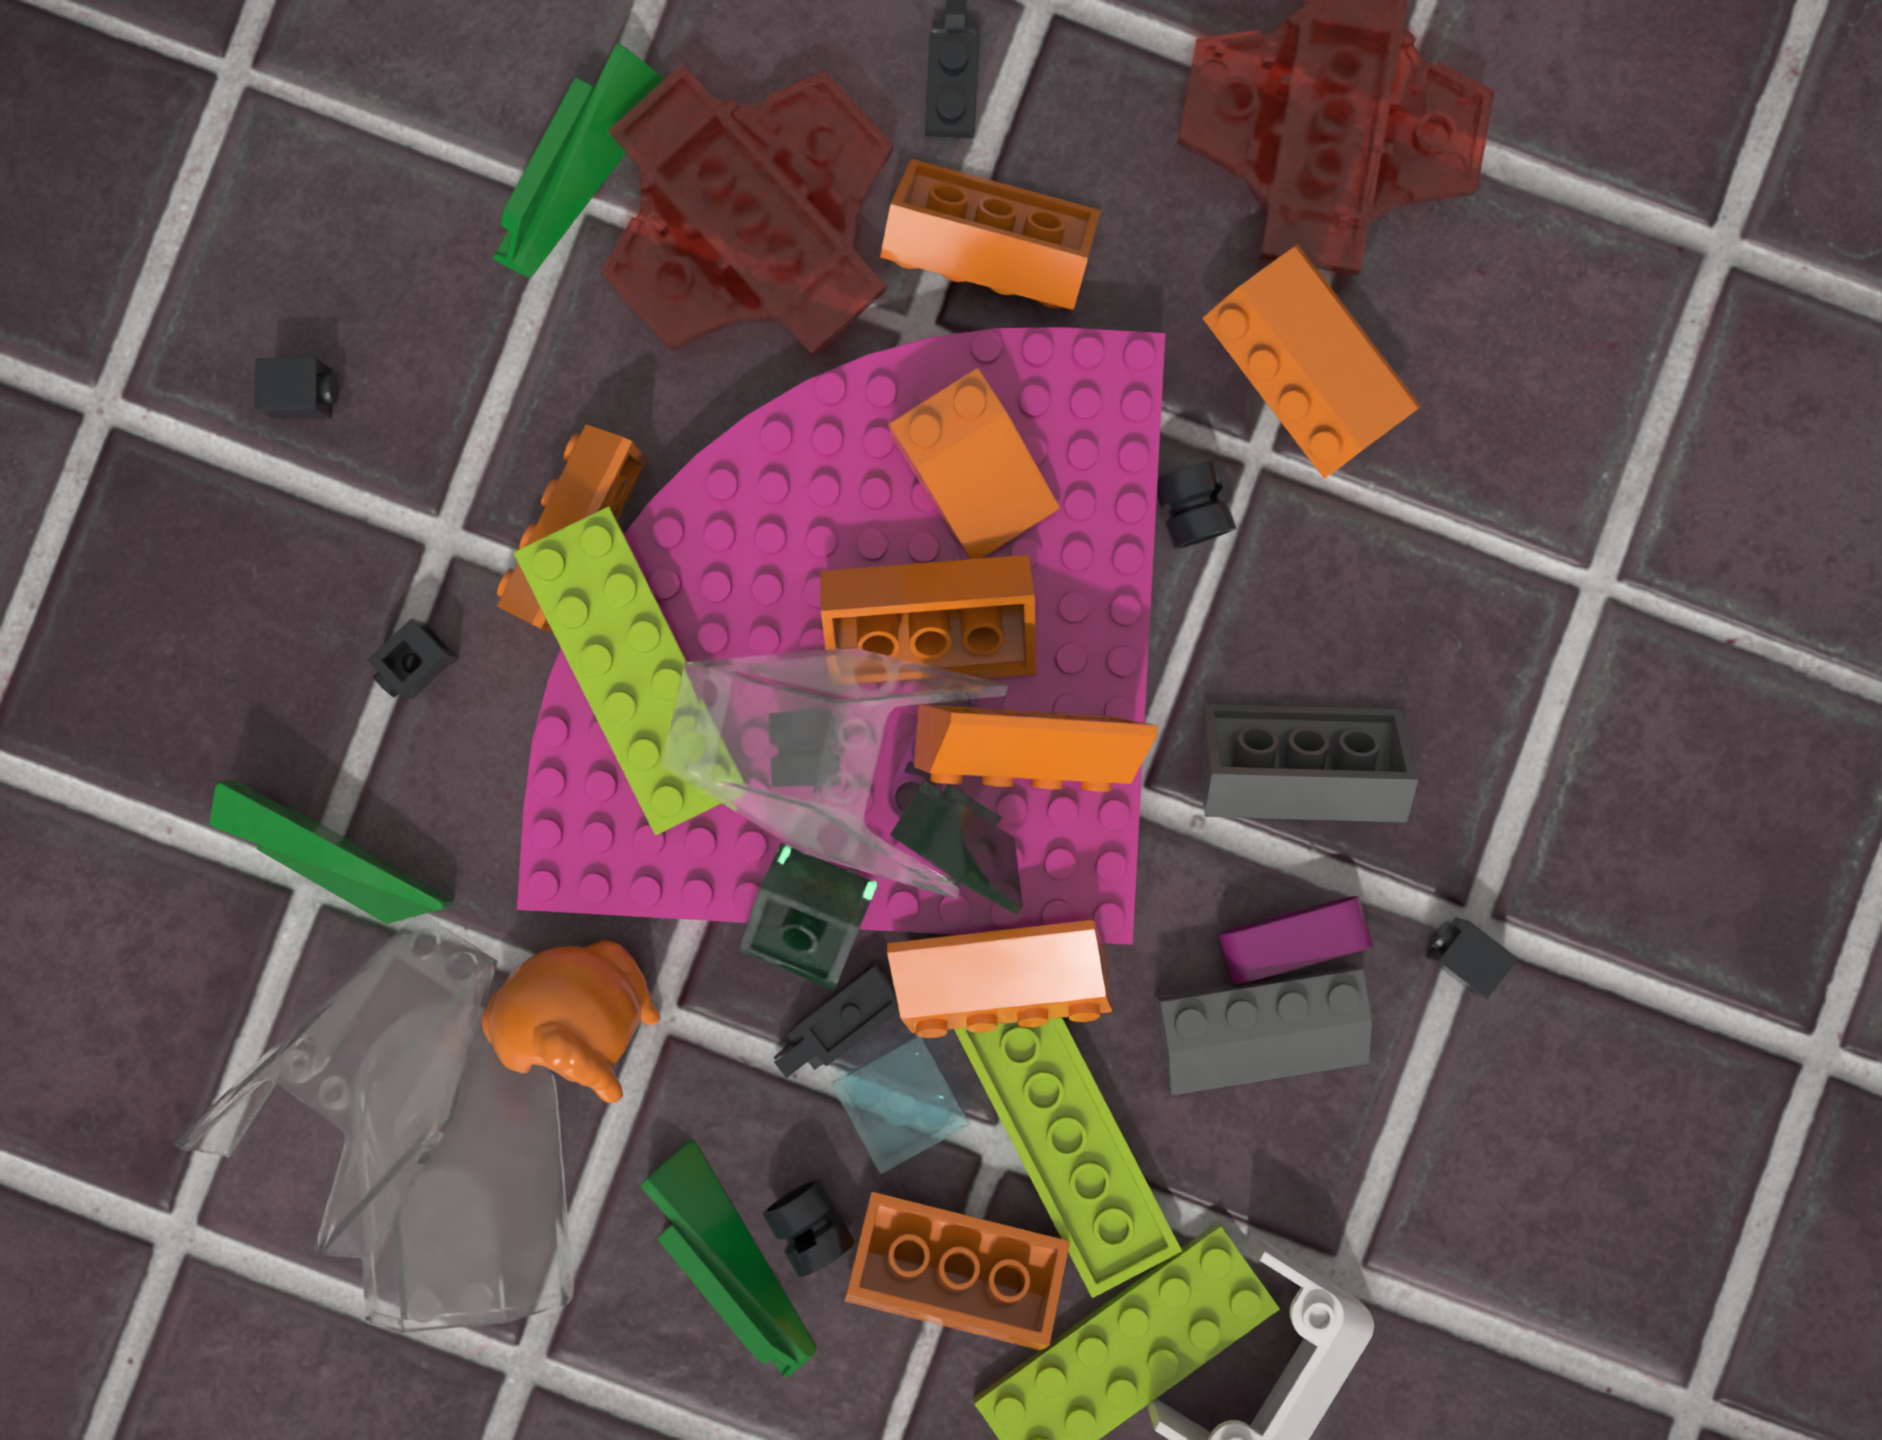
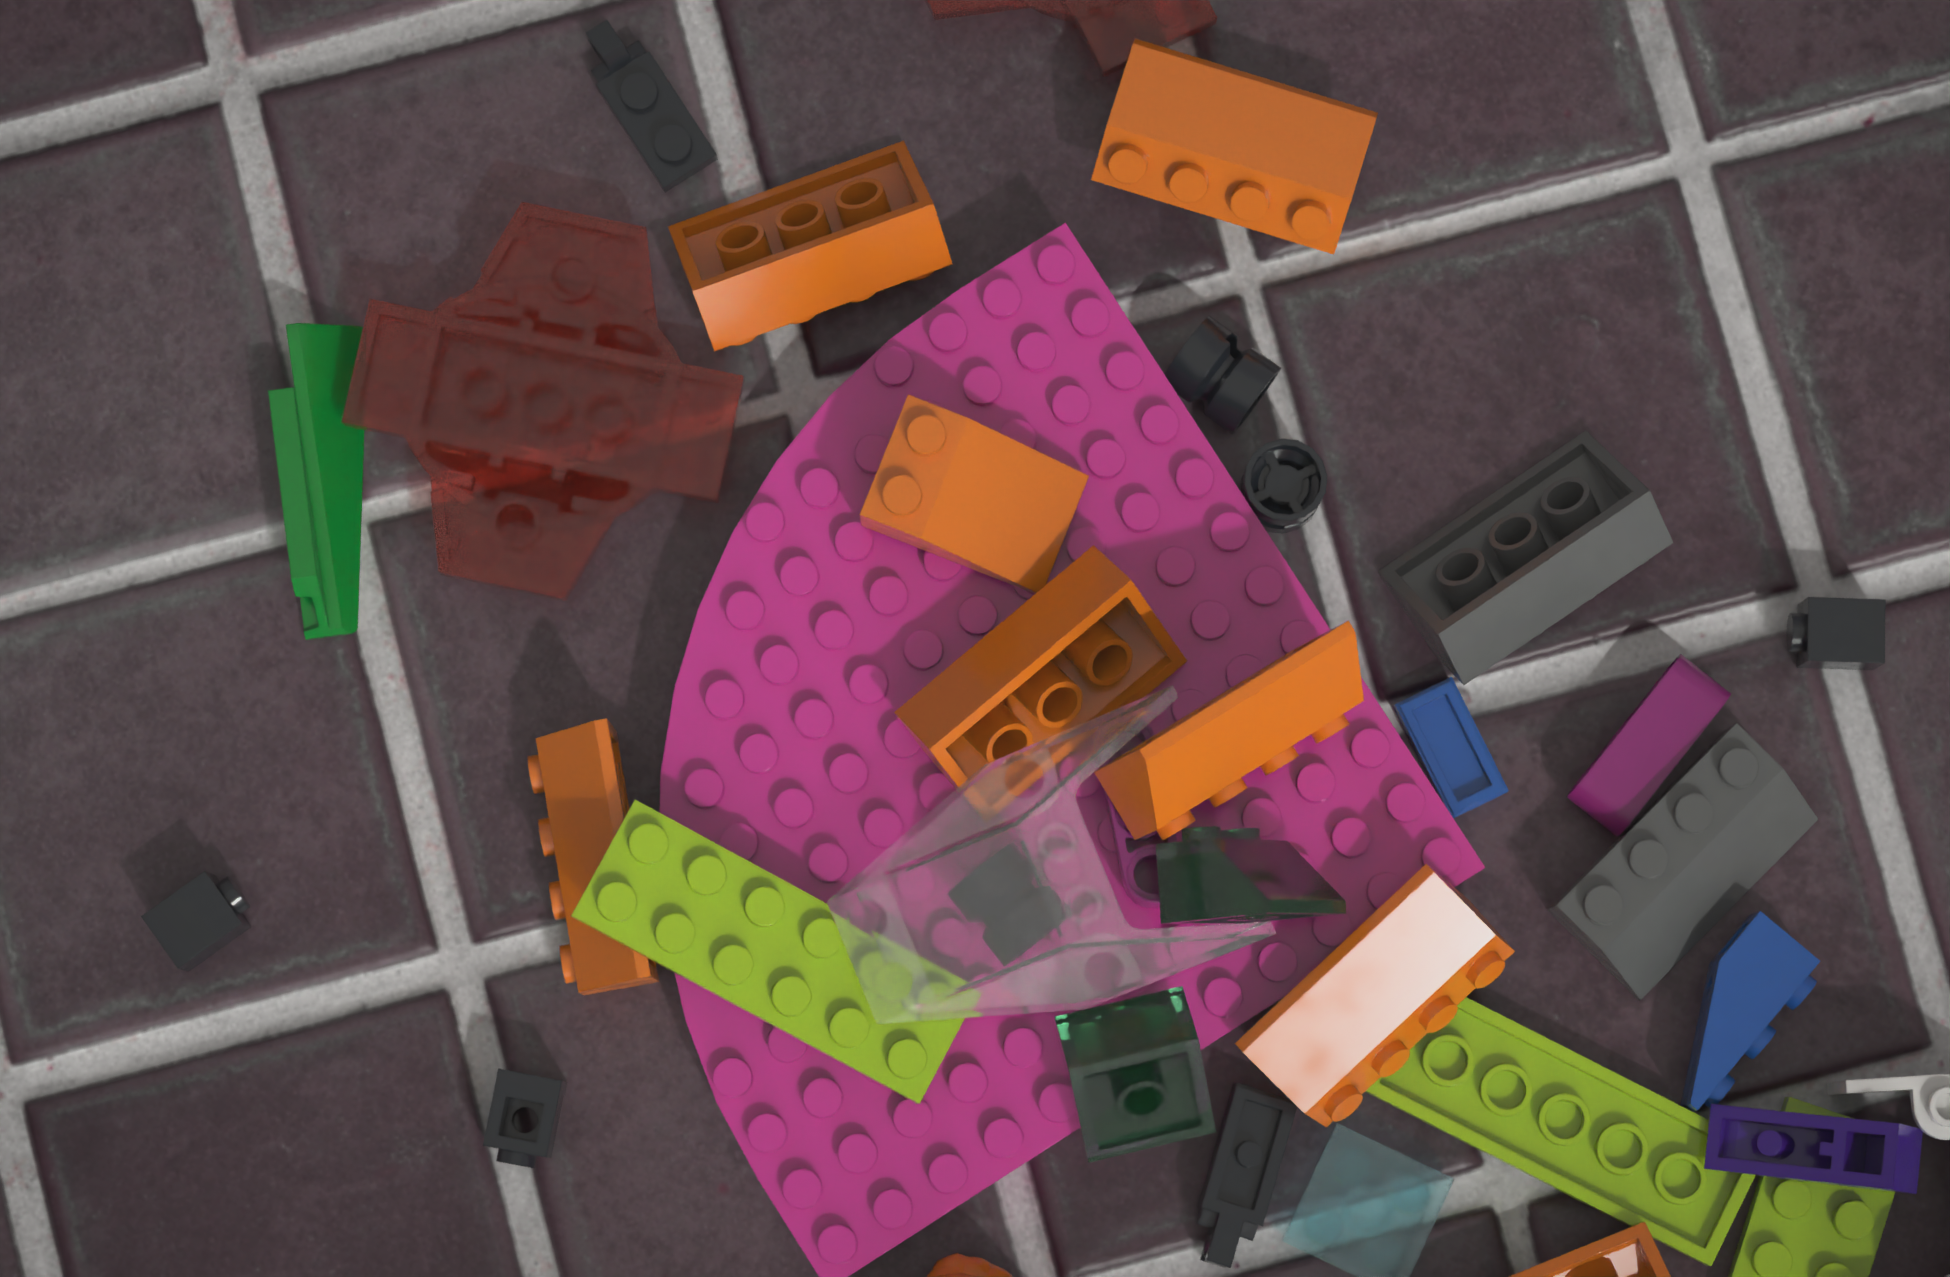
camera: 35 degrees left, 5 degrees down
(1167, 849) = (1450, 748): none -> blue tile
(1183, 605) = (1284, 484): none -> black wheel
(1212, 1276) = (1814, 1148): none -> dark purple slope
(1239, 1141) = (1742, 994): none -> blue slope

